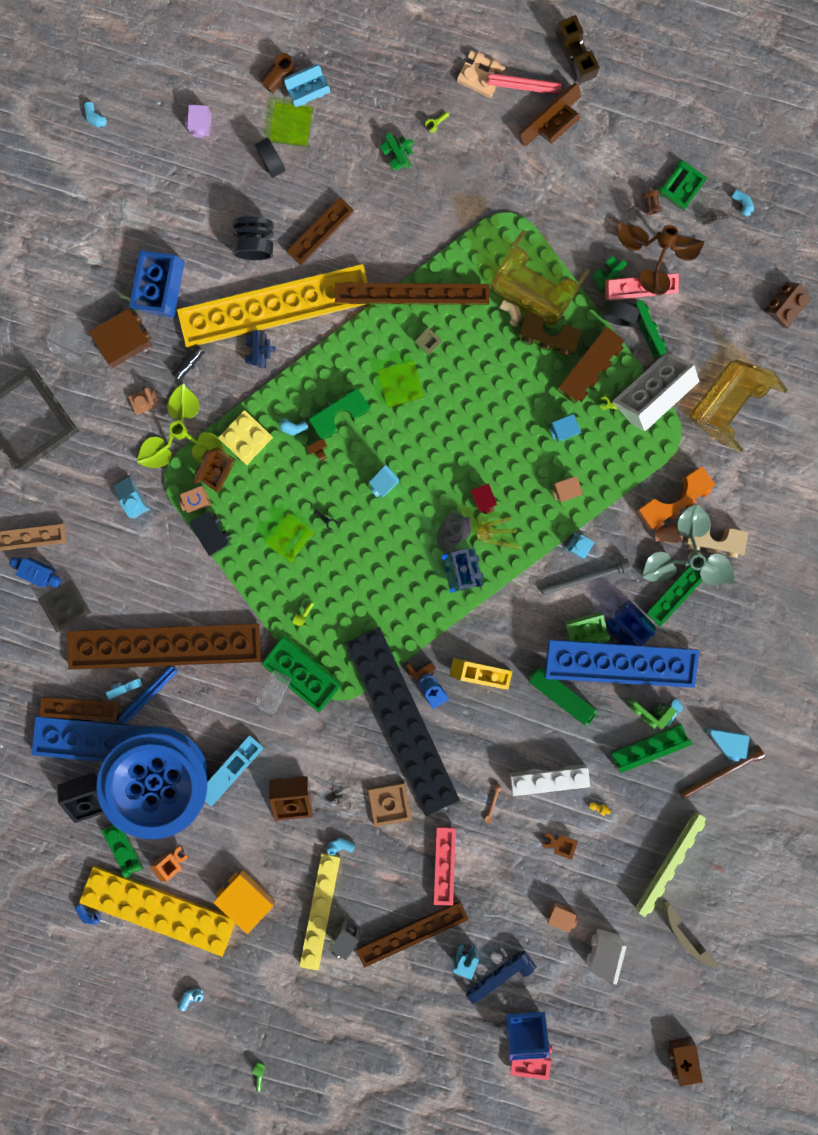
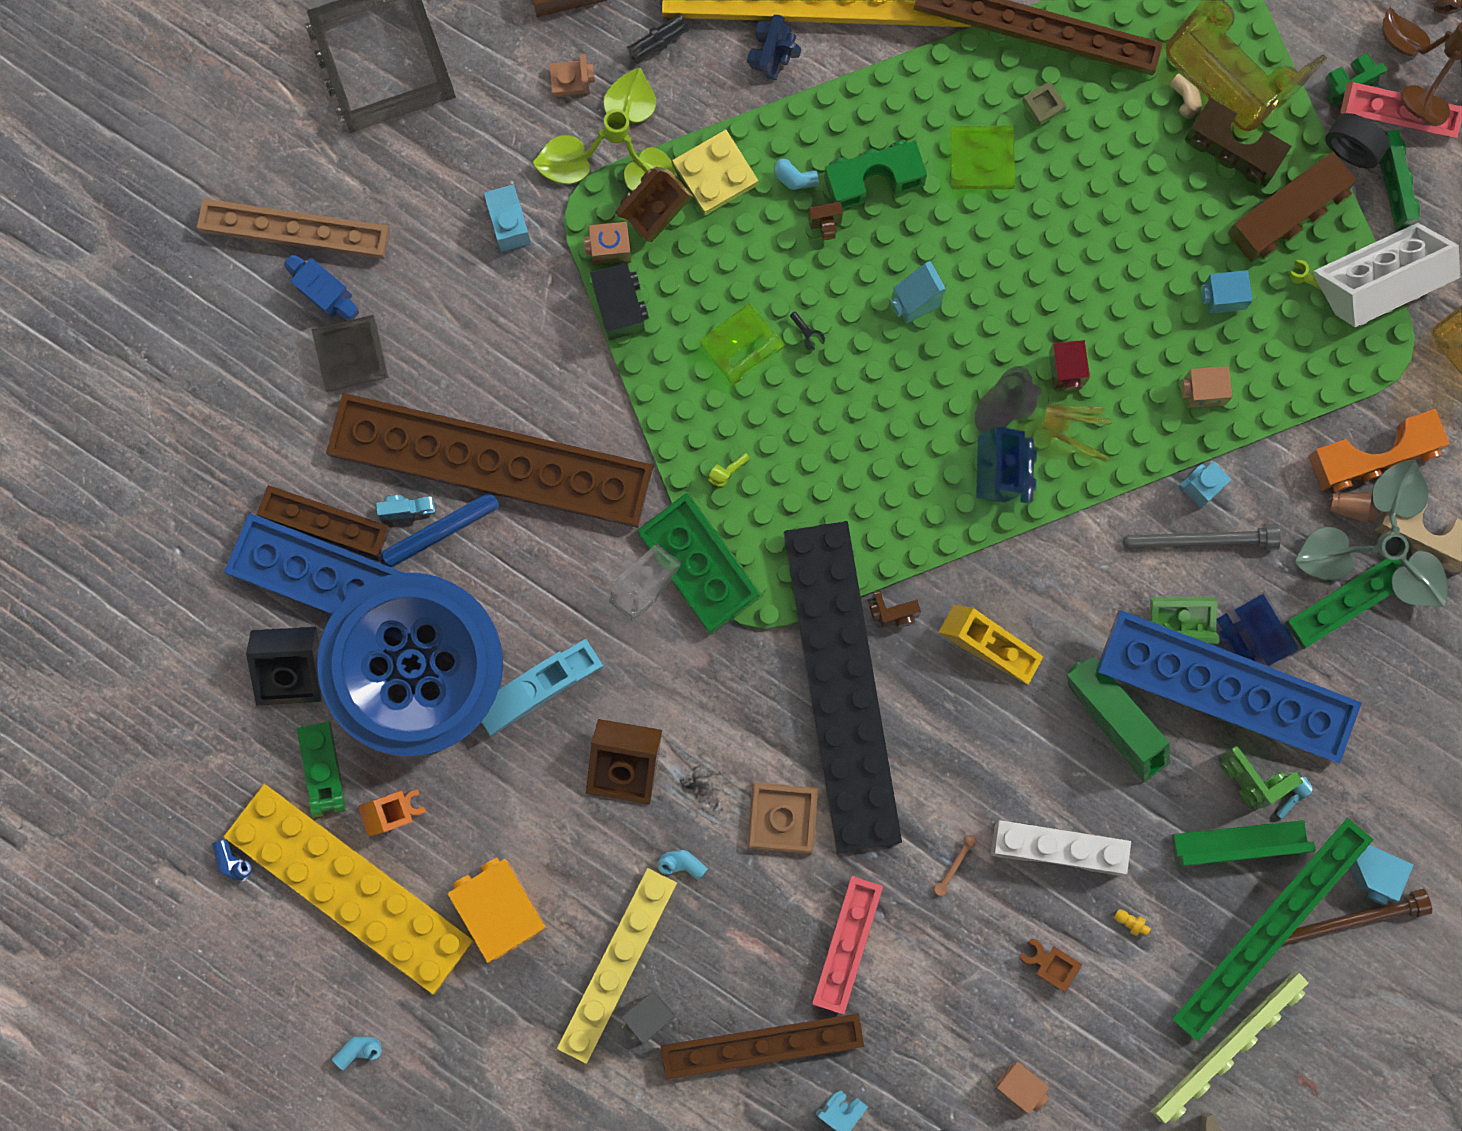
camera: 15 degrees right, 10 degrees down
(433, 691) = (905, 648): blue piece -> none
(679, 793) = (1272, 929): none -> green plate

